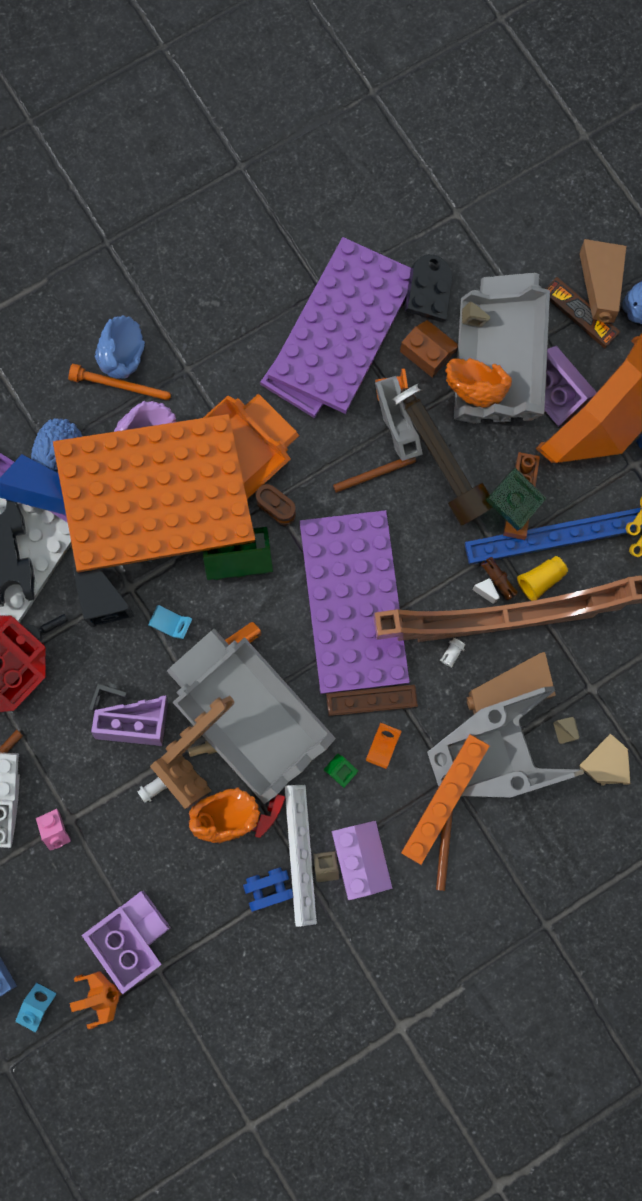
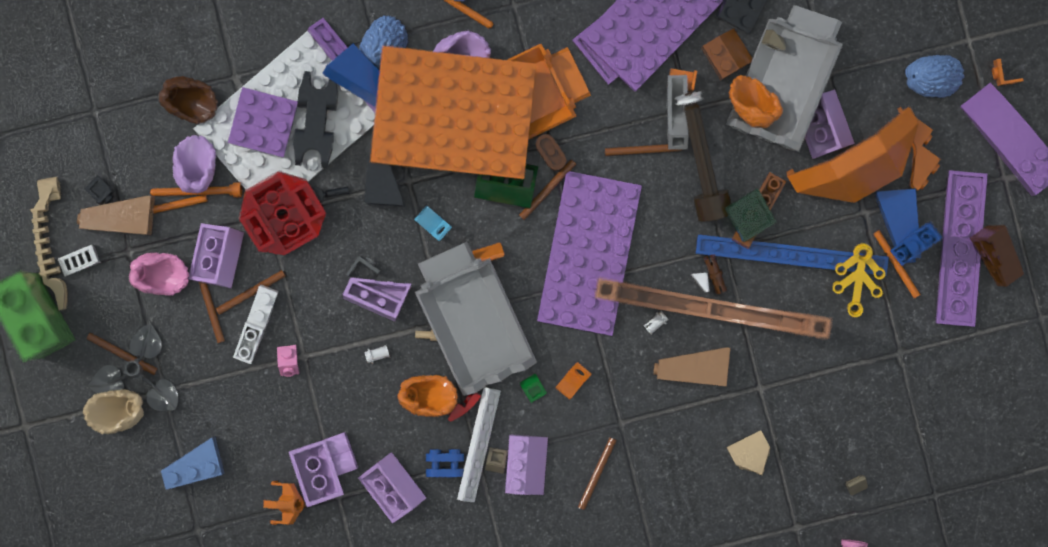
camera: 20 degrees right, 10 degrees up
(32, 1009) = (233, 496): medium azure bracket -> none
(177, 771) = (402, 348): medium nougat bracket -> none
(216, 938) = (392, 487): none -> lavender slope
(285, 547) = (547, 189): none -> dark orange bar
(371, 700) = (577, 339): reddish brown tile -> none
(445, 799) = (609, 439): orange plate -> none
(507, 764) = (659, 417): light grey windscreen -> none
(541, 578) = (751, 285): yellow plant -> none
(566, 730) = (726, 416): dark tan slope -> none
(580, 313) = (868, 64): tile -> none
(603, 277) = (897, 42): medium nougat slope -> none

